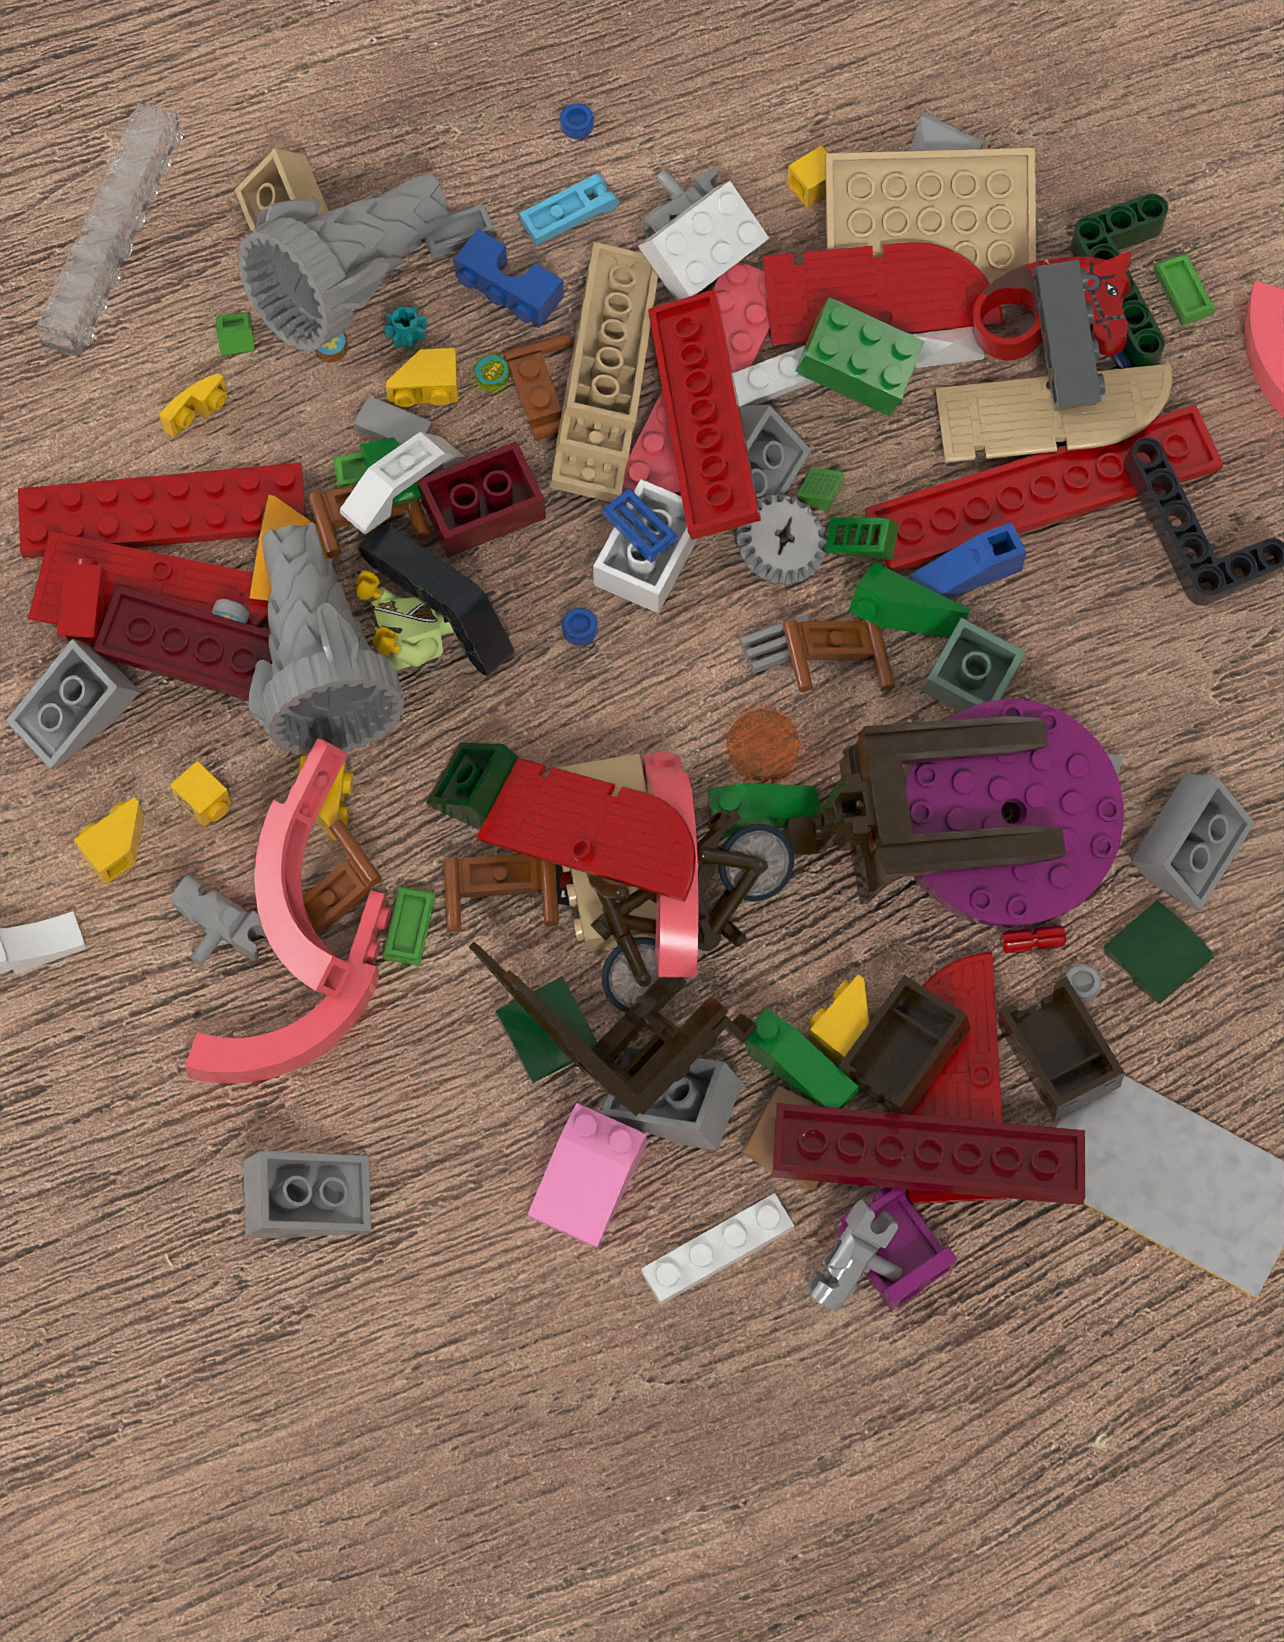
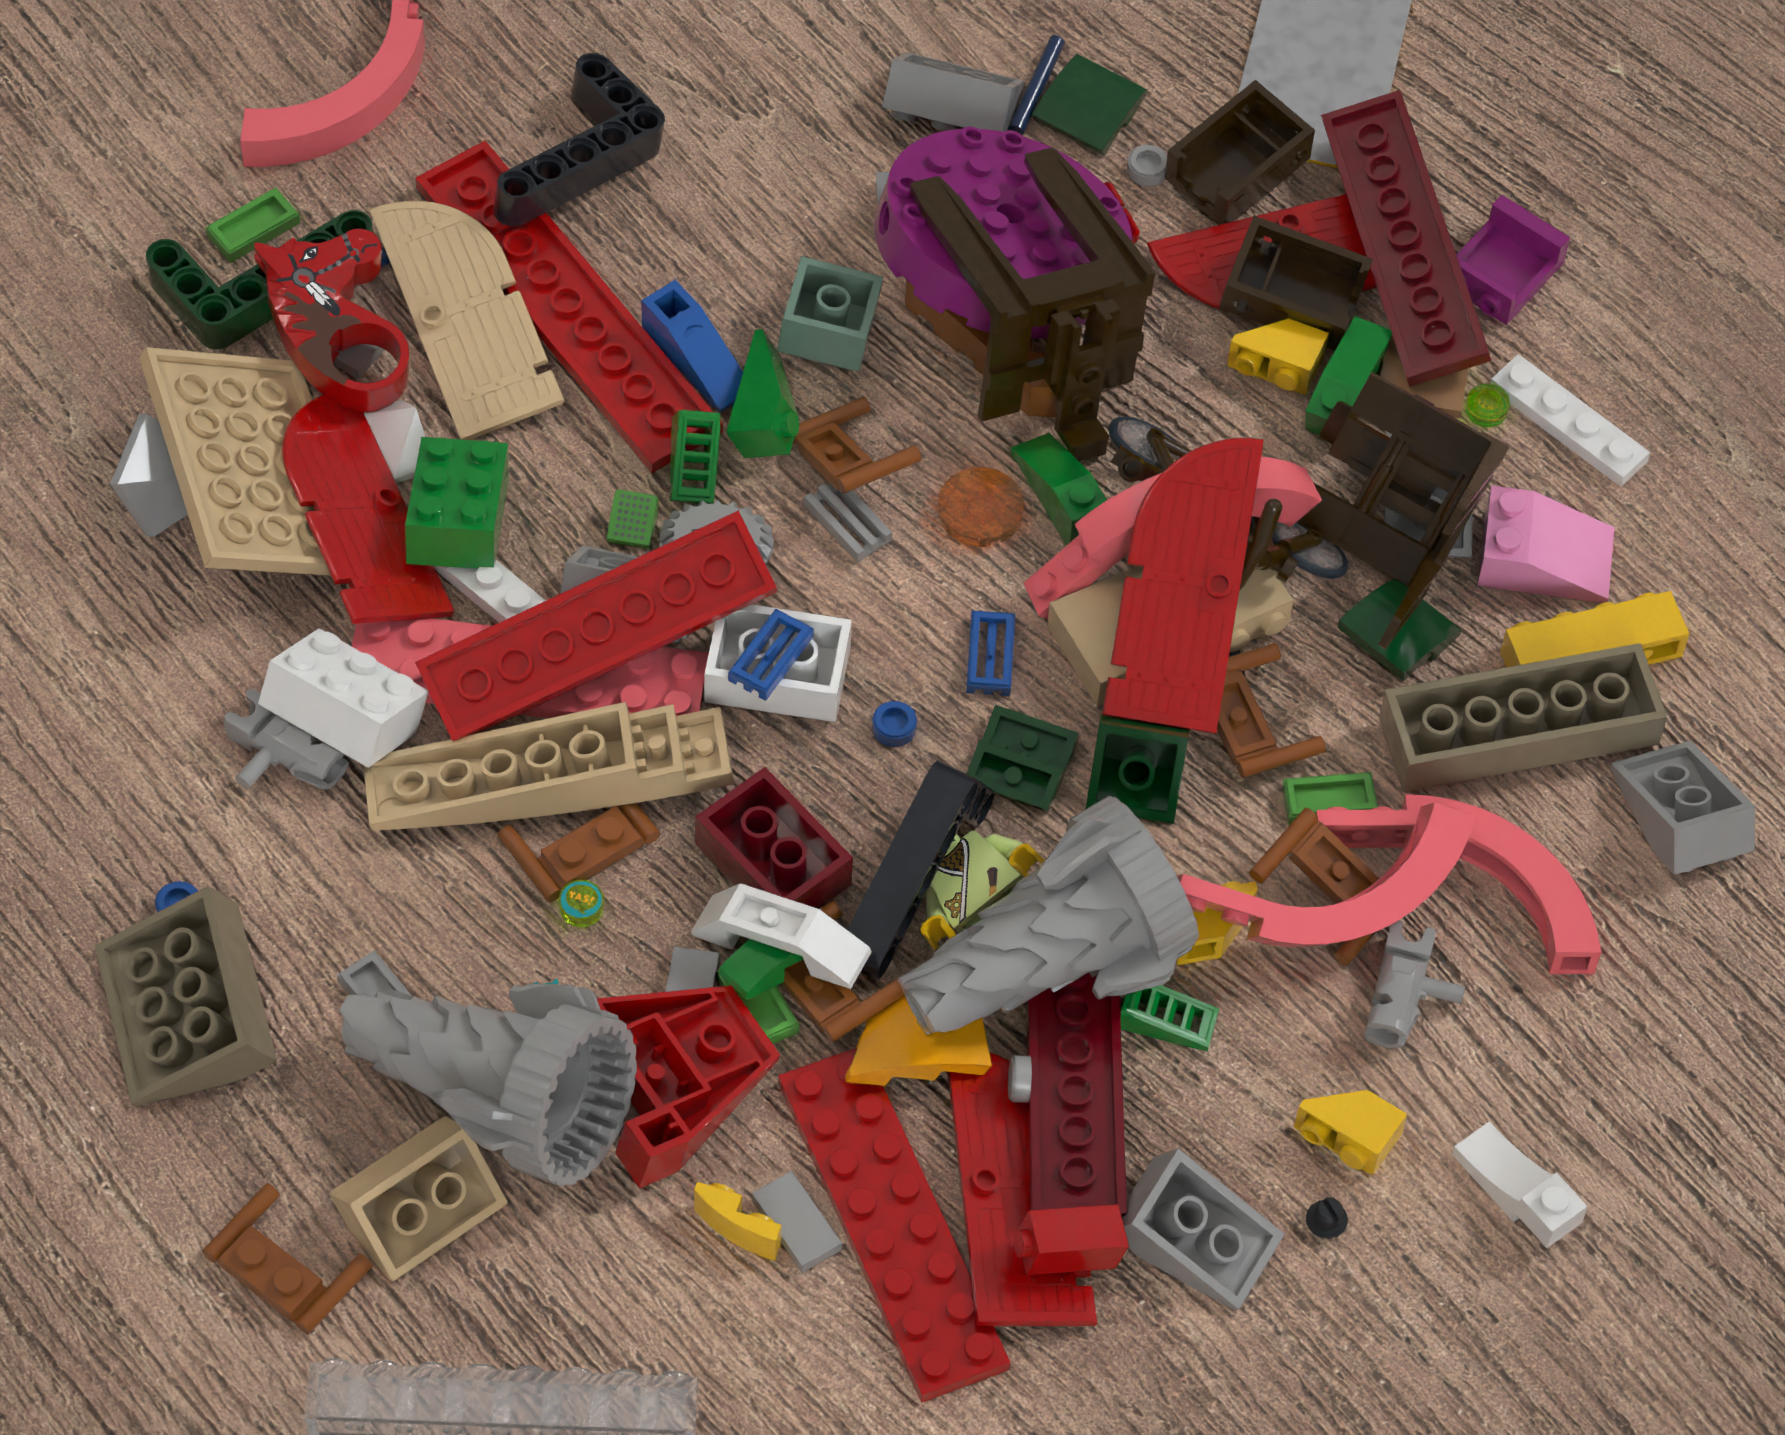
camera: 110 degrees left, 10 degrees down
(53, 804) = (1327, 1218): none -> black piece
(184, 447) = (804, 1228): none -> light grey tile
(201, 794) = (1259, 1050): yellow brick -> none
(235, 333) = (608, 1214): bright green slope -> none
(240, 749) = (1151, 1026): none -> green slope
(266, 118) = (275, 1273): none -> dark orange plate
(331, 401) = (694, 1066): none -> red wedge
(421, 1089) = (1522, 717): none -> dark tan brick
(425, 379) = (615, 958): yellow slope -> none
(481, 1180) = (1646, 620): none -> yellow brick
(491, 107) = (185, 999): none -> dark tan slope
(517, 707) = (1023, 757): none -> dark green slope
(529, 296) = (436, 945): blue arch -> none
(567, 209) = (321, 876): medium azure plate -> none
(619, 726) = (990, 683): none -> blue tile
(752, 1184) = (1487, 405): none -> clear neon green tile
(807, 177) = (201, 615): yellow brick -> none
(855, 1255) = (1537, 281): light grey piece -> none
(1067, 335) = (389, 280): dark grey brick -> none
(1192, 917) = (1037, 84): none -> dark blue bar

